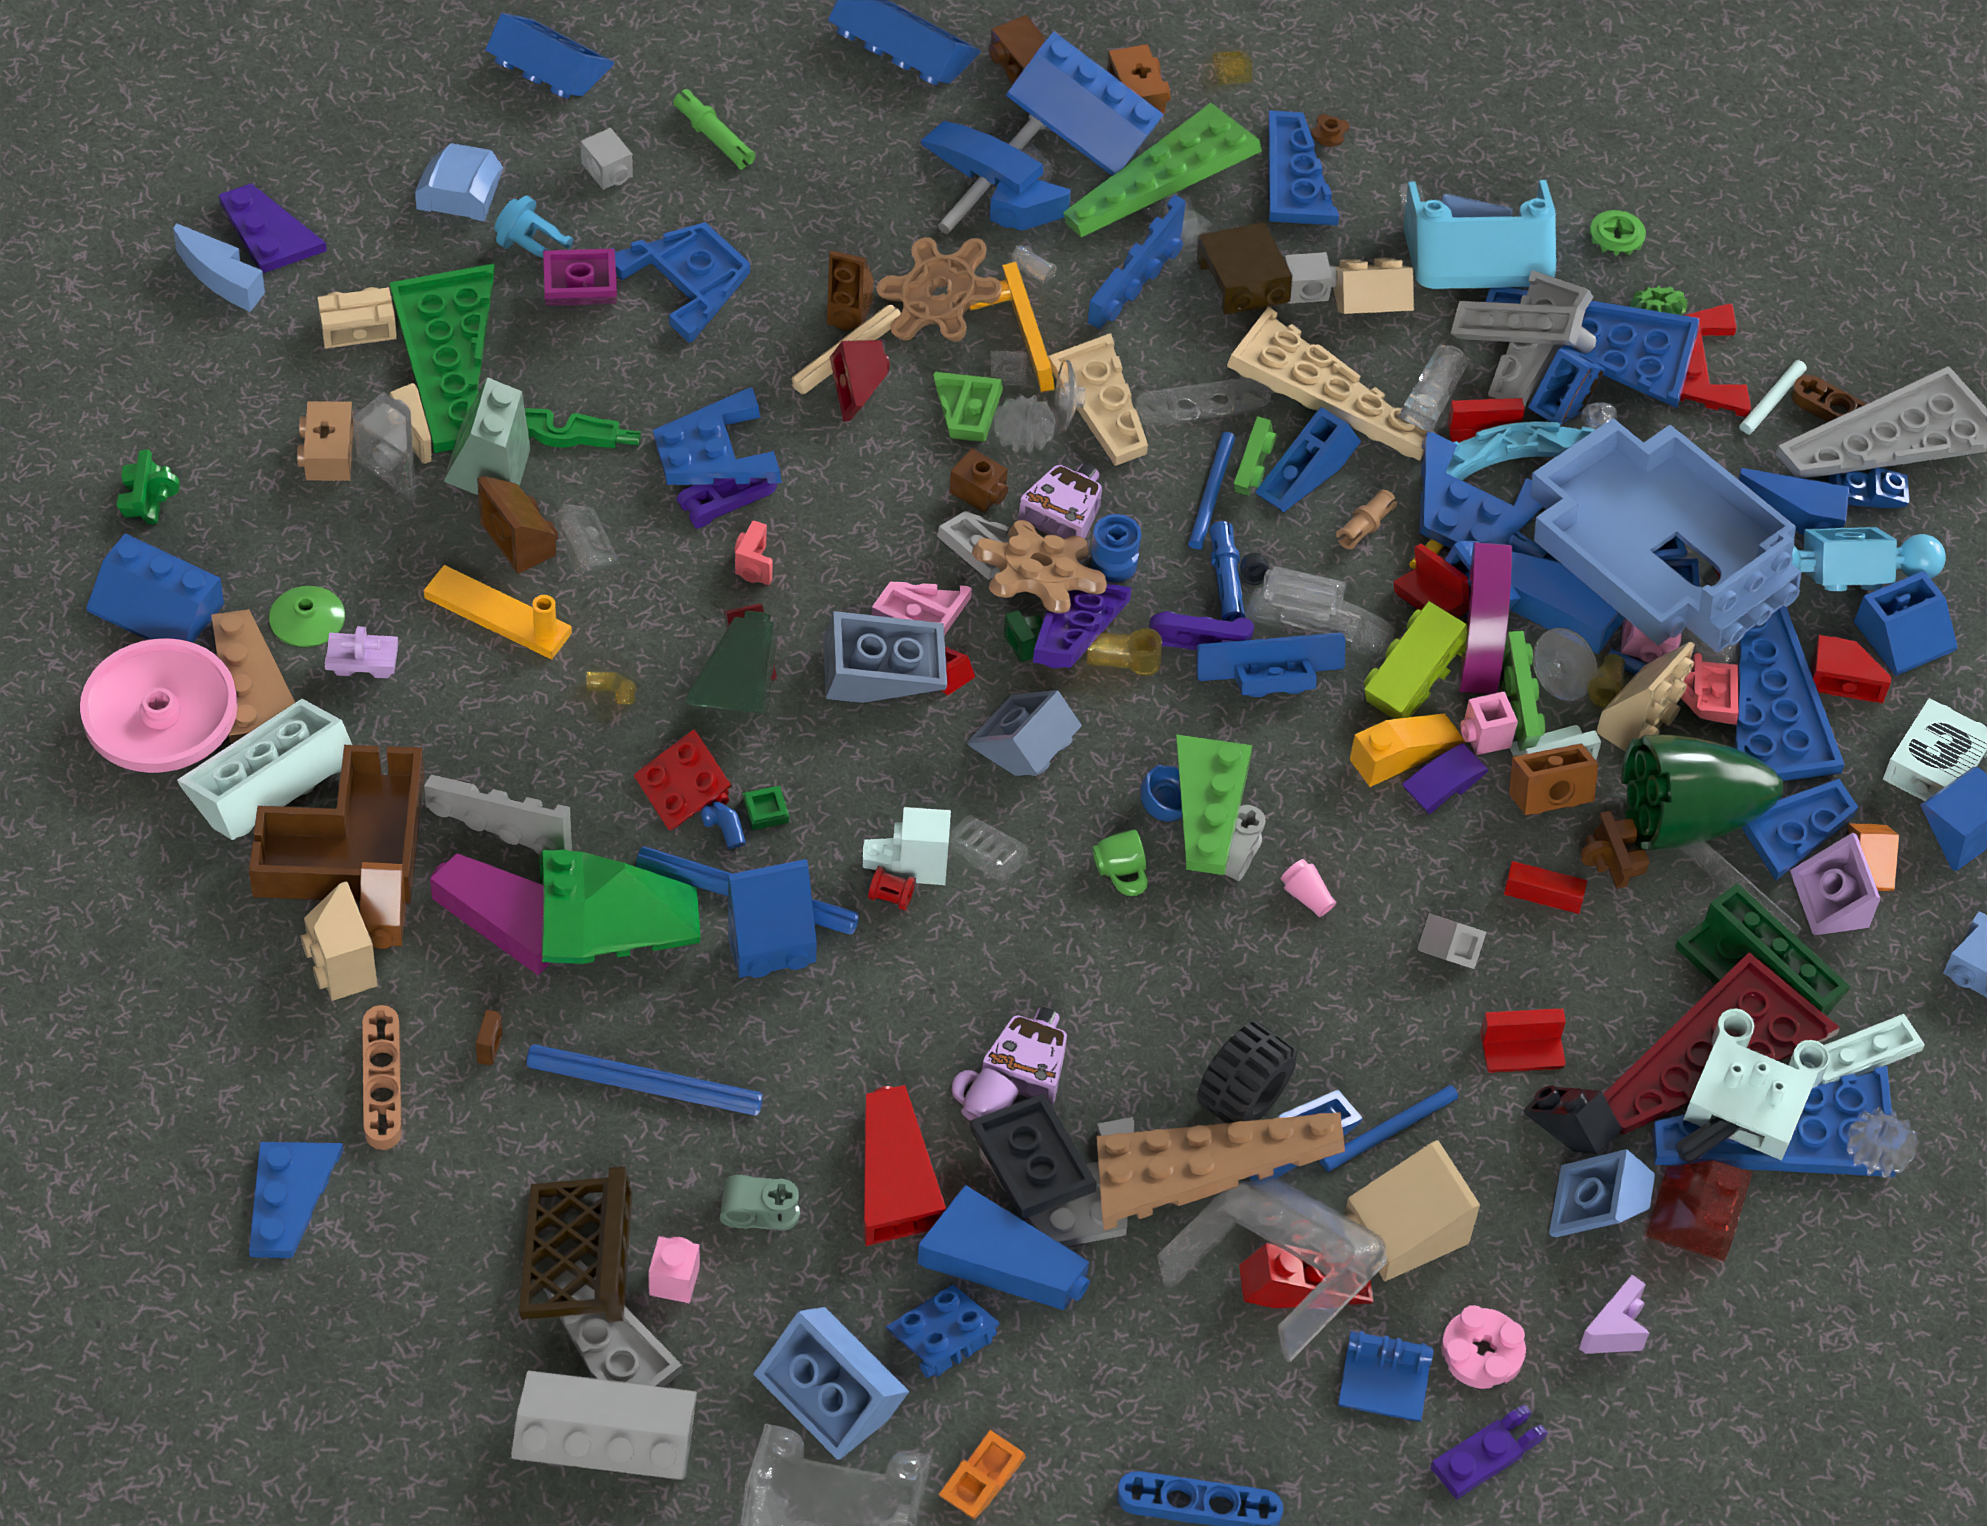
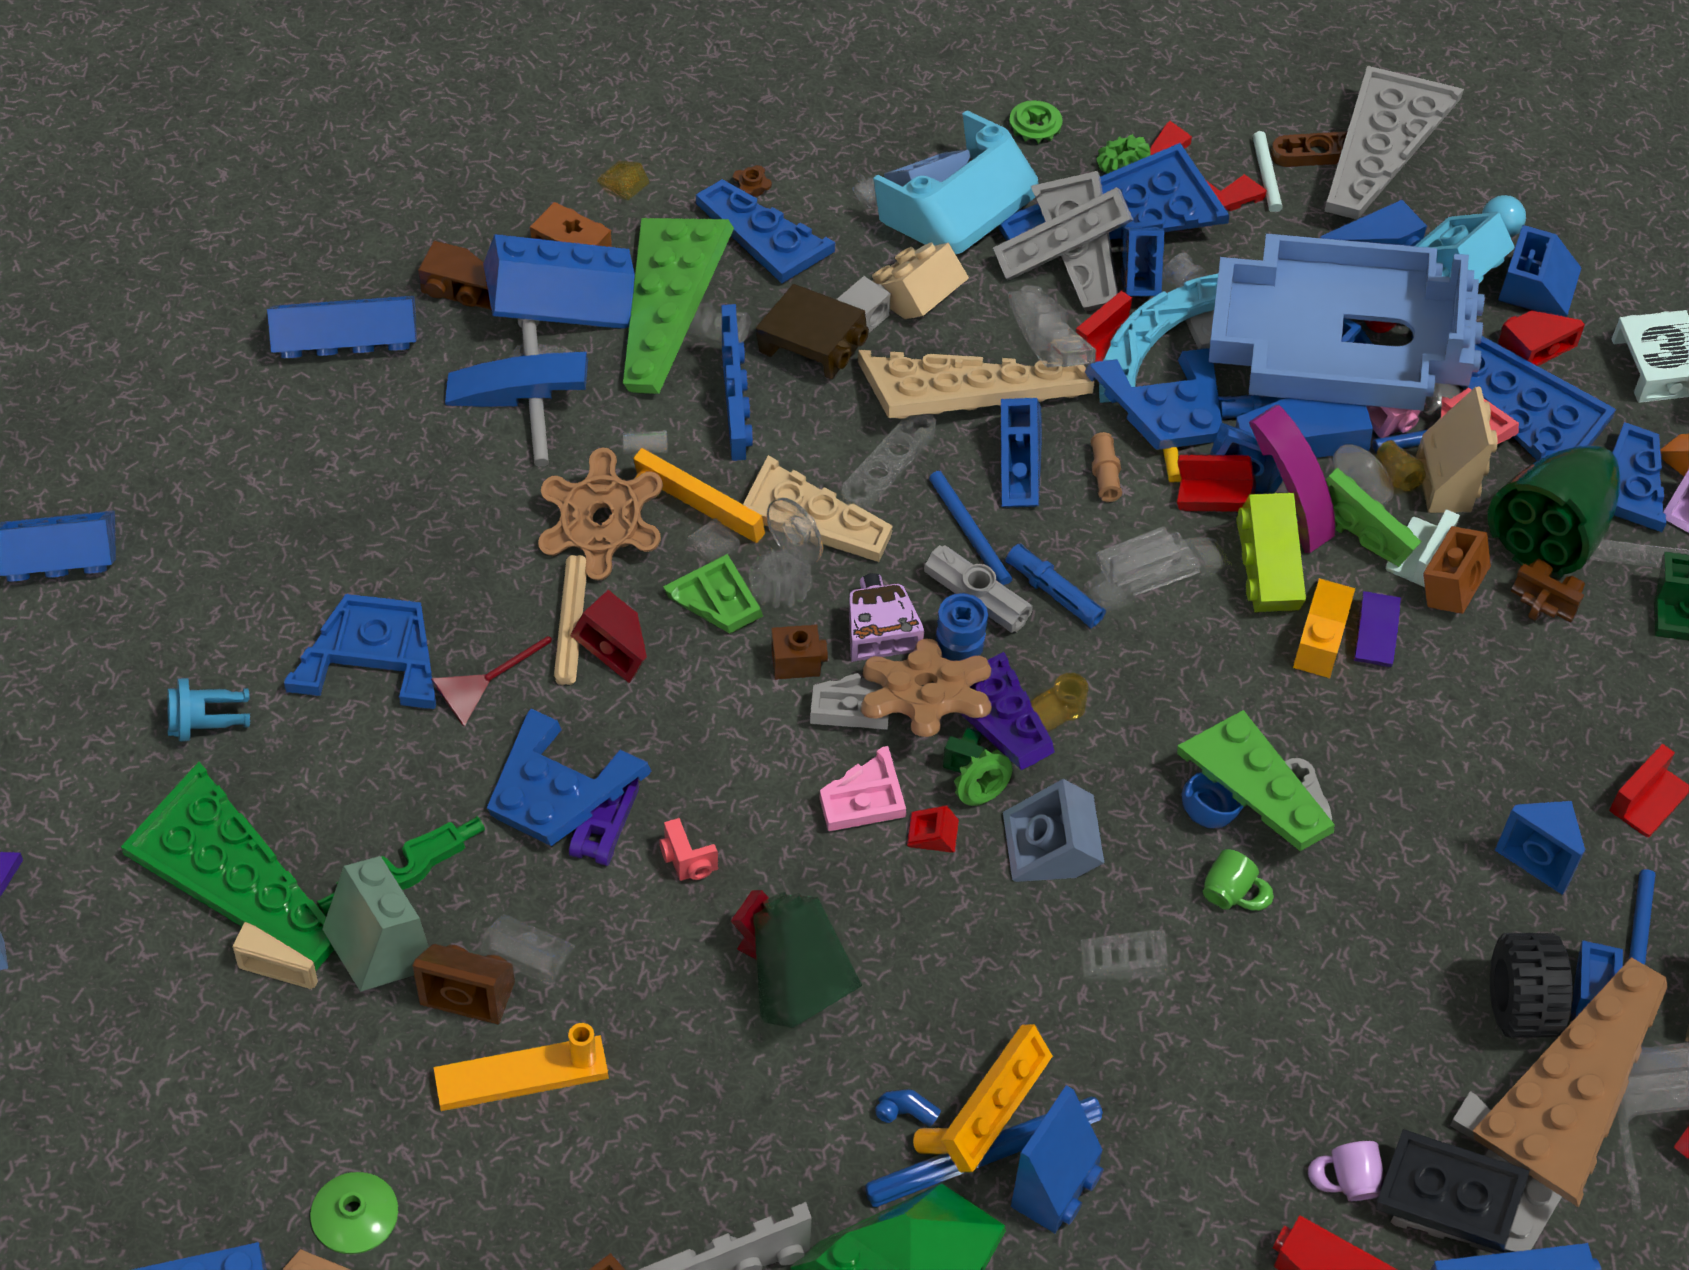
camera: 40 degrees left, 0 degrees up
(150, 487) = (75, 1198): green hips -> none
(327, 442) = (207, 1014): medium nougat brick -> none
(356, 317) = (121, 900): tan brick -> none
(361, 653) = (450, 1208): lavender hips -> none
(386, 443) = (284, 994): clear slope -> none
(459, 182) = (86, 709): medium blue slope -> none
(579, 277) = (290, 717): magenta slope -> none
(606, 158) = (202, 598): light grey brick -> none
(612, 681) = (686, 1056): clear yellow arm -> none
(683, 780) = (837, 1097): red hinge -> none
(705, 120) = (252, 507): bright green pin -> none
(719, 345) = (464, 692): none -> piece
(765, 807) = (921, 1065): green tile -> none
(824, 854) = (991, 1102): none -> light orange piece
(848, 290) = (537, 568): reddish brown slope -> none
(882, 657) = (885, 860): sand blue slope -> none
(891, 888) = (1096, 1052): red bush -> none
(916, 849) = (1090, 1002): light aqua hinge -> none
(997, 652) = (990, 783): none -> bright green gear
(1030, 1054) = (1350, 1104): lavender torso -> none
(1033, 207) = (590, 406): blue slope -> none
(1163, 532) = (978, 580): none -> light grey piece
(1190, 631) = (1093, 647): dark purple plate -> none
(1257, 567) = (1071, 566): black hinge -> none
(1259, 445) = (984, 483): bright green wing -> none
(1272, 663) = (1168, 635): blue bracket -> none
(1307, 886) = (1382, 793): bright pink cone -> none
(1383, 998) = (1544, 842): none -> blue slope
(1451, 941) = (1522, 754): light grey panel -> none
(1489, 723) = (1369, 560): bright pink brick -> none
(1545, 887) = (1530, 658): red slope -> none
(1877, 489) = (1408, 185): blue slope -> none

